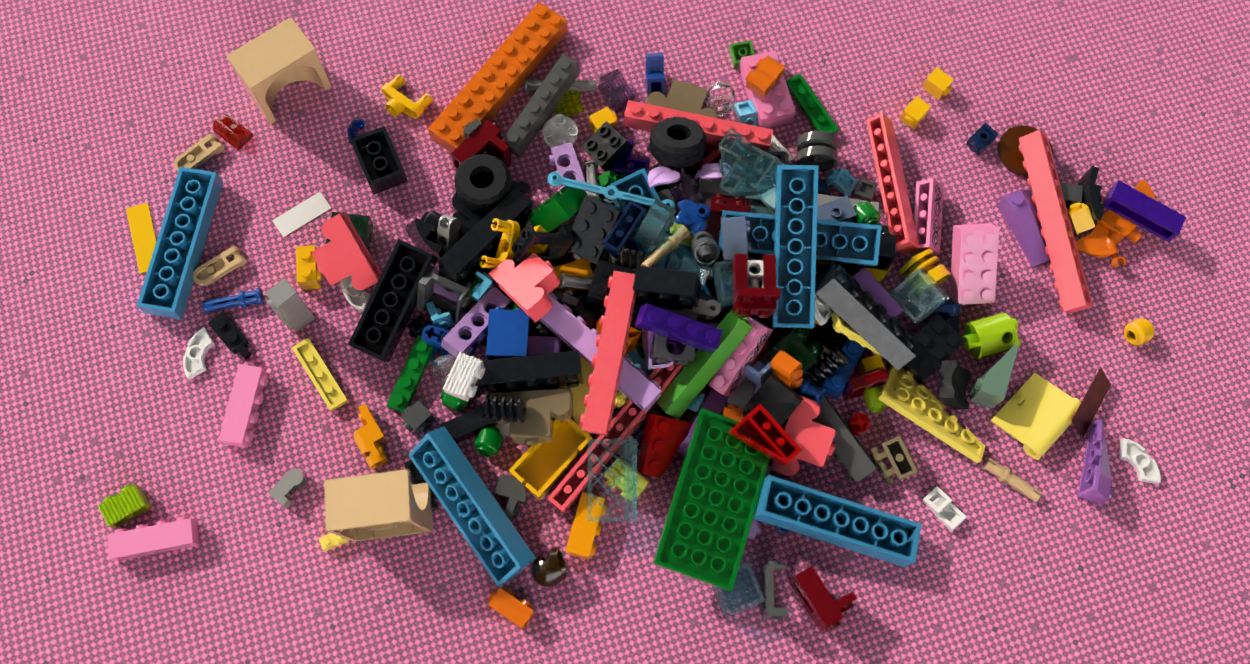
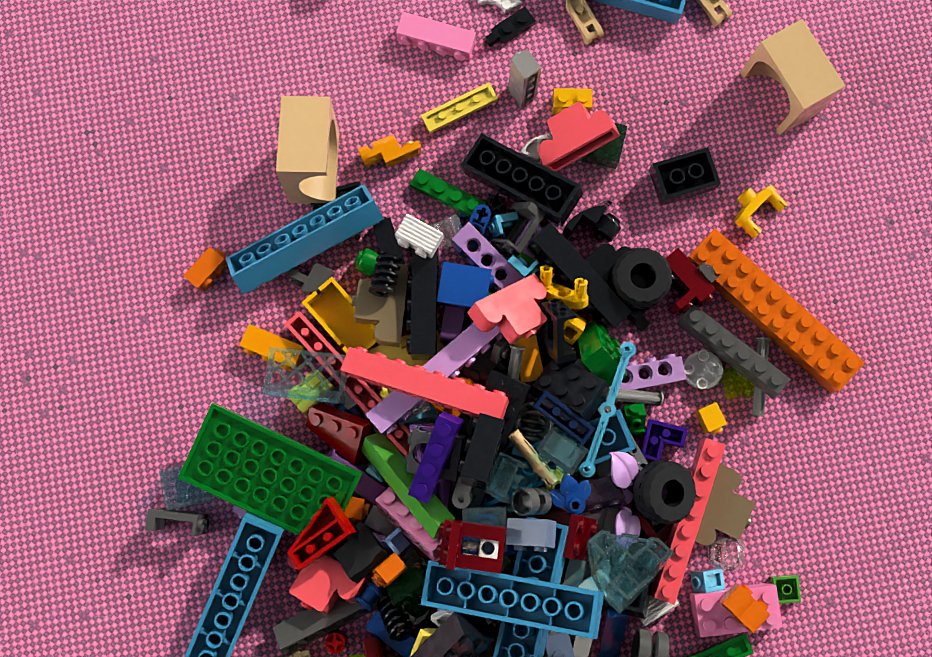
camera: 100 degrees right, 10 degrees up
(232, 131) = (734, 34): clear red slope -> none
(242, 299) = (545, 39): blue pin -> none
(287, 486) = (352, 73): light grey leg -> none
(301, 214) = (634, 99): white sticker -> none
(353, 127) = (725, 153): clear blue arm -> none
(417, 418) = (402, 196): dark grey brick -> none
(448, 231) = (591, 239): light grey leg -> none
(550, 571) = (234, 306): dark brown helmet -> none
(606, 146) = (677, 416): black brick -> none
(615, 90) = (748, 438): clear purple brick -> none
(654, 73) = (764, 482): blue brick -> none
(818, 601) = (151, 569): dark red brick -> none

